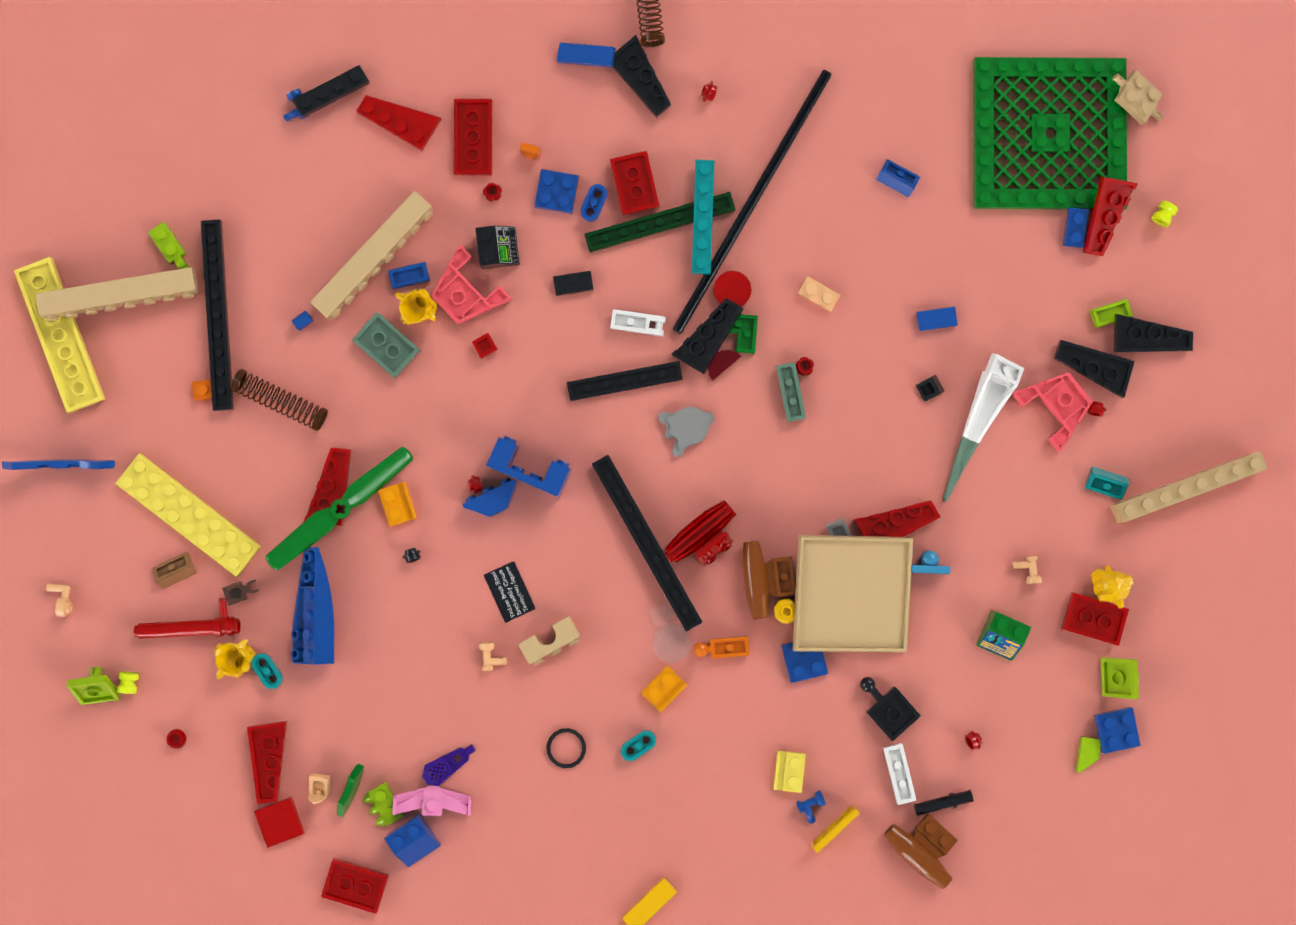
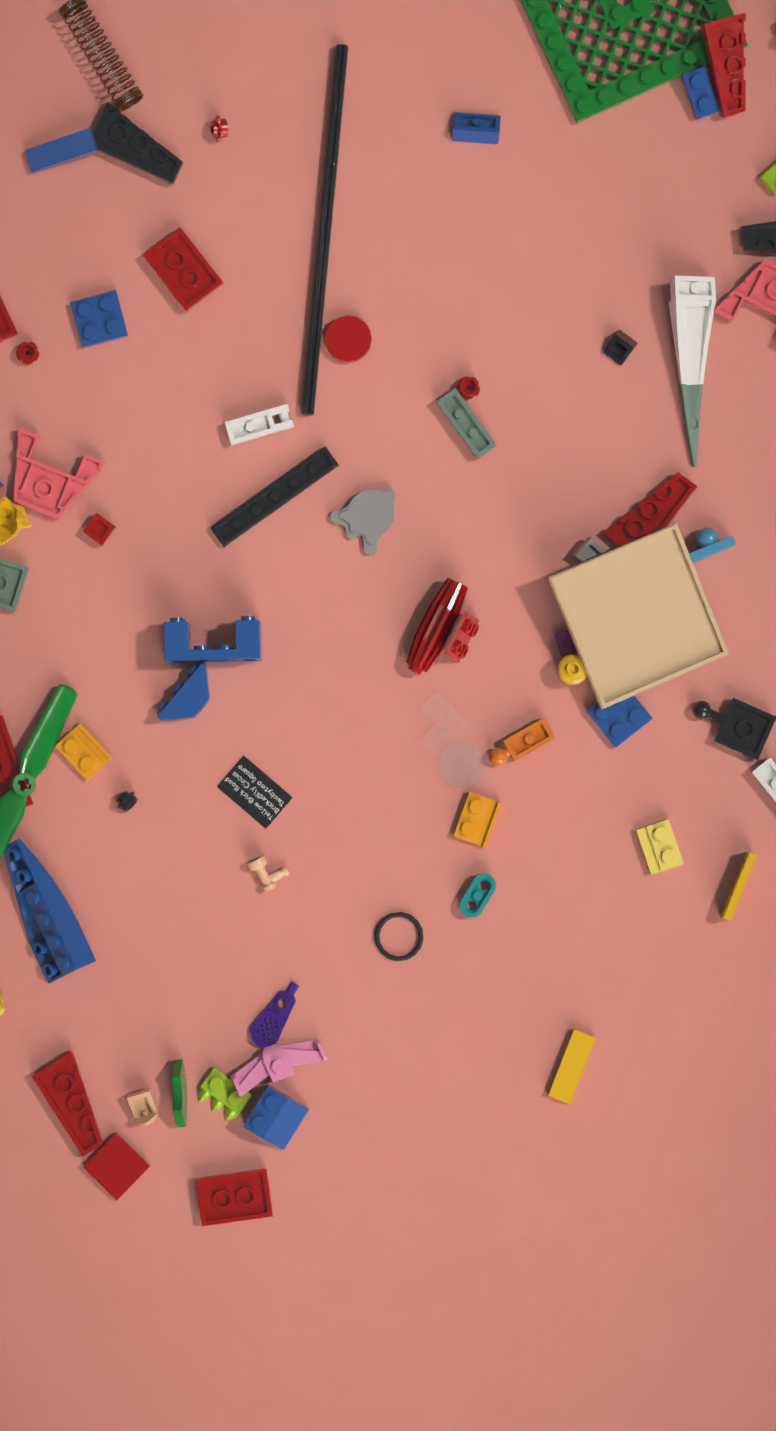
camera: 25 degrees left, 0 degrees up
(265, 672) = (25, 1004): teal plate -> none
(474, 484) = (160, 689): red plate -> none
(497, 246) = (62, 411): black slope -> none
(530, 151) = (49, 287): orange plate -> none
(535, 650) = (314, 842): tan arch -> none
(573, 283) = (166, 413): black tile -> none
(593, 203) = (147, 313): blue plate -> none
(647, 543) = (383, 665): black plate -> none
(653, 224) = (231, 300): dark green tile -> none
(703, 217) = (277, 272): teal plate -> none
(708, 338) = (346, 405): black wing -> none
(721, 362) = (373, 426): dark red tile -> none
(746, 333) = (379, 374): green tile -> none
(767, 578) = (532, 645): dark orange plate -> none
(805, 806) = (695, 877): blue piece -> none
(818, 294) = (447, 299): light nougat plate -> none
(936, 319) = (592, 266): blue tile -> none

